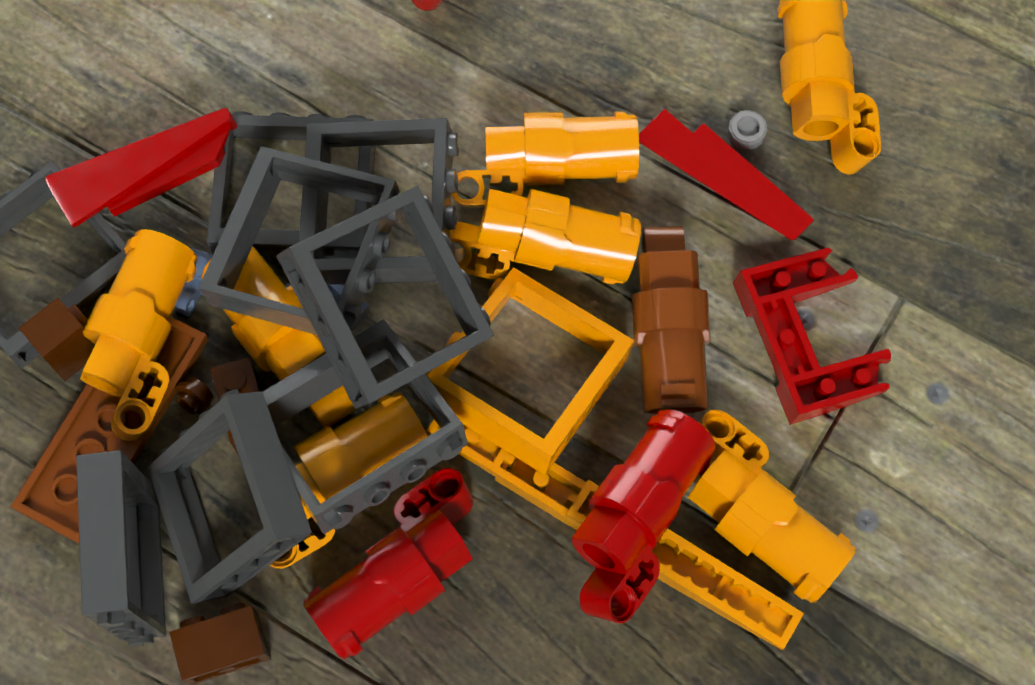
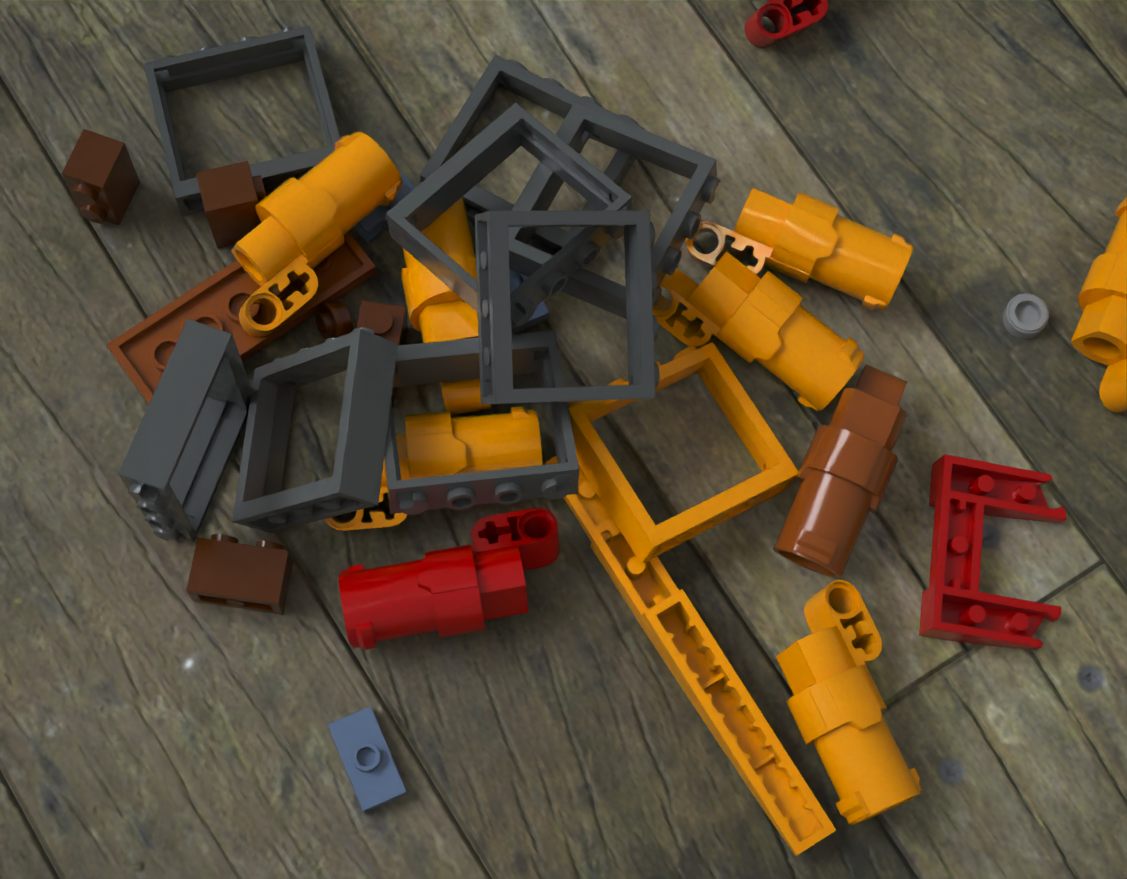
camera: 20 degrees right, 0 degrees up
(142, 168) = (392, 73): red wedge -> none
(635, 511) = (712, 641): red piece -> none
(725, 172) = (978, 346): red wedge -> none

